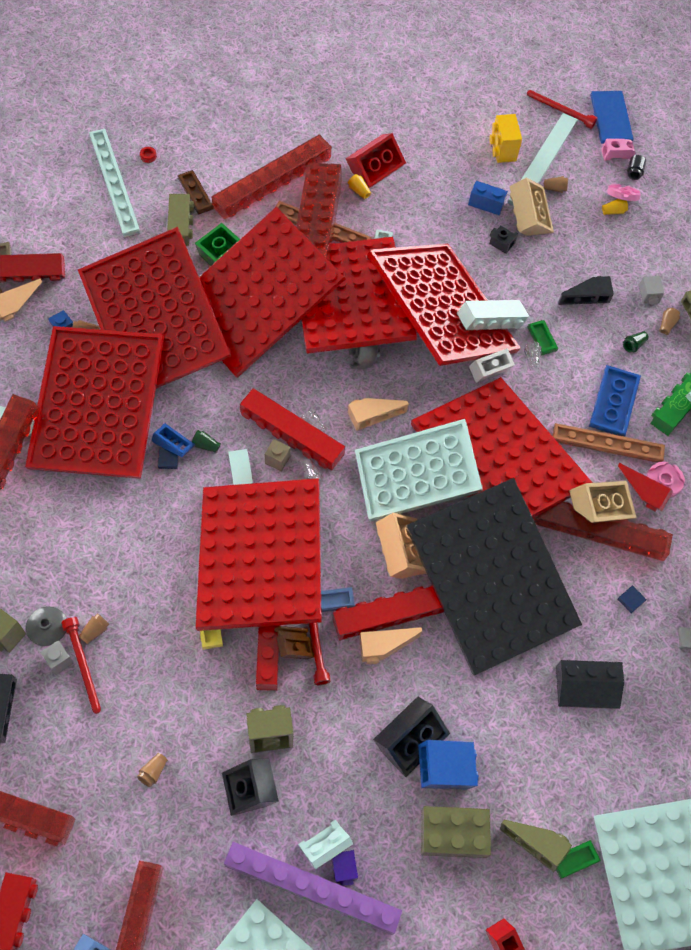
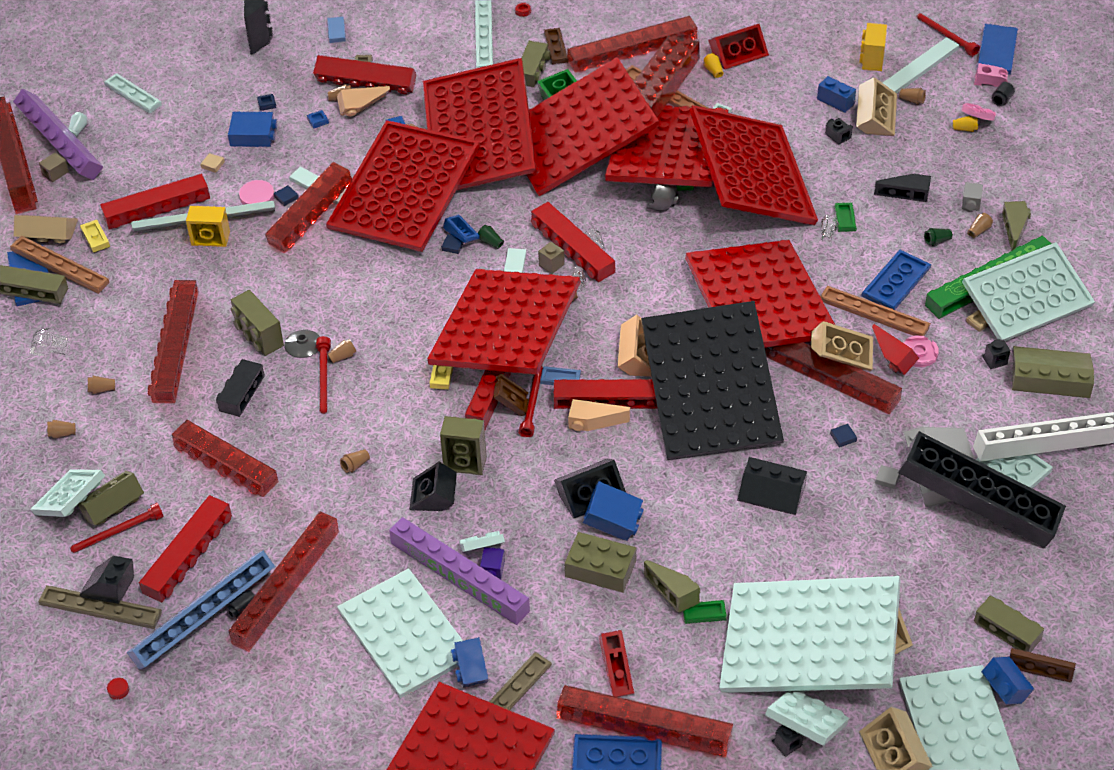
camera: 25 degrees right, 15 degrees down
(57, 657) = (303, 363): light grey brick -> none
(372, 411) = (655, 242): light nougat slope -> none
(418, 470) = (674, 286): light aqua plate -> none
(491, 365) = (781, 226): white brick -> none
(492, 314) = (797, 184): light aqua brick -> none

